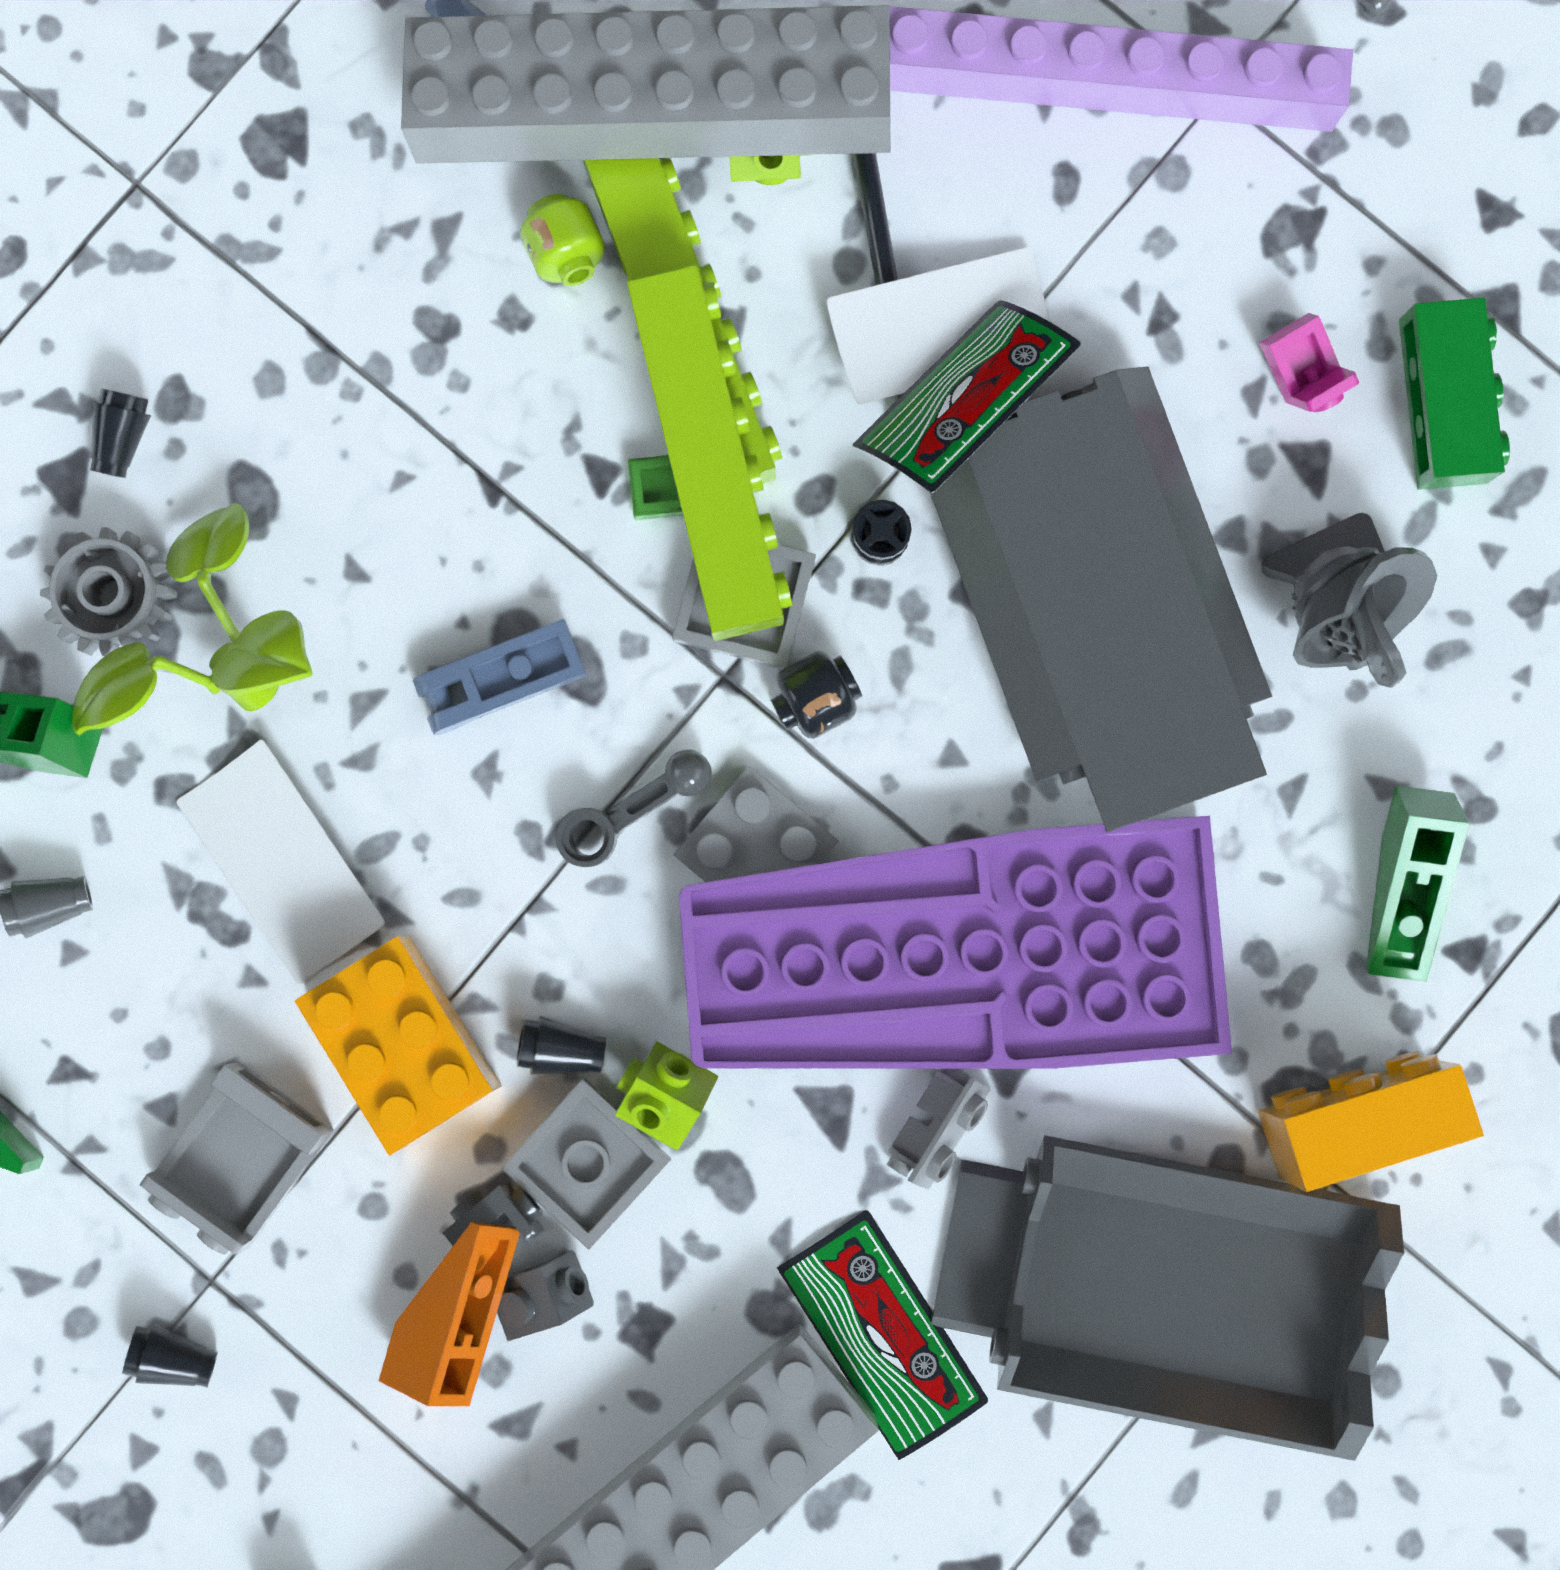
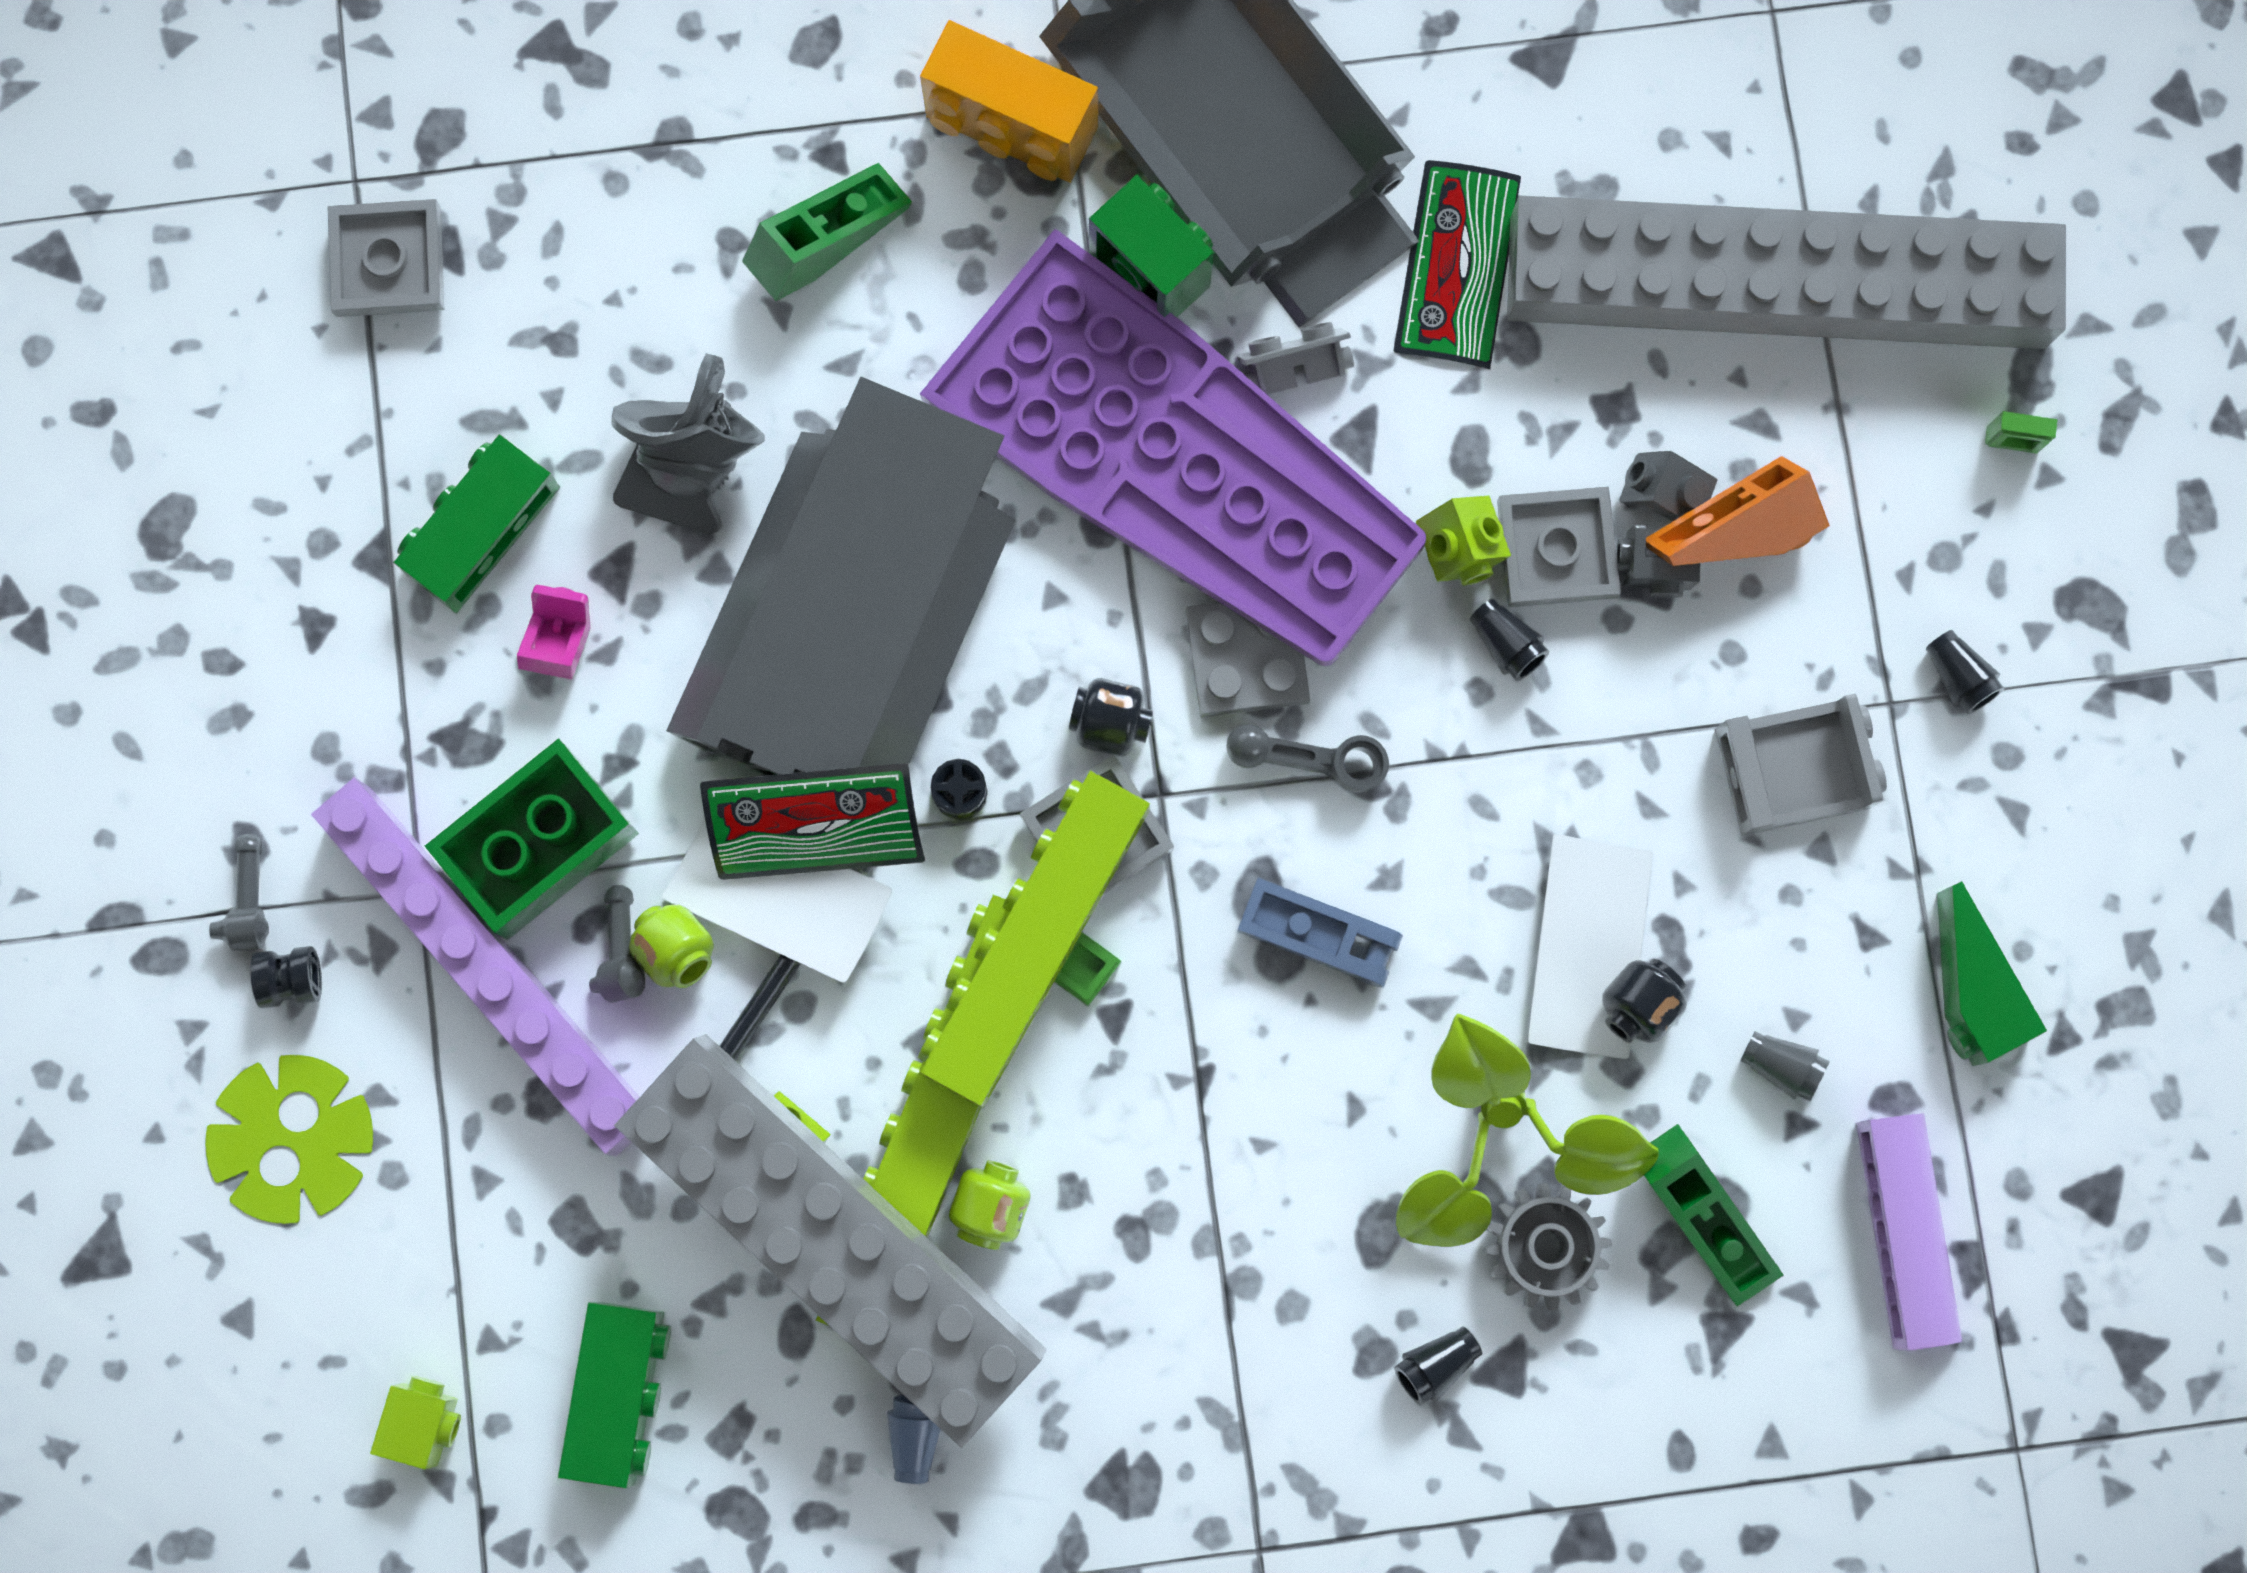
camera: 140 degrees left, 5 degrees down
(196, 851) = (1644, 1001): none -> black head
(397, 1043) = (1618, 738): light orange brick -> none
(986, 212) = (671, 946): none -> lime head
(1003, 158) = (620, 976): none -> dark grey piece
(1138, 1102) = (1152, 246): none -> green brick
(1169, 190) = (531, 839): none -> green brick

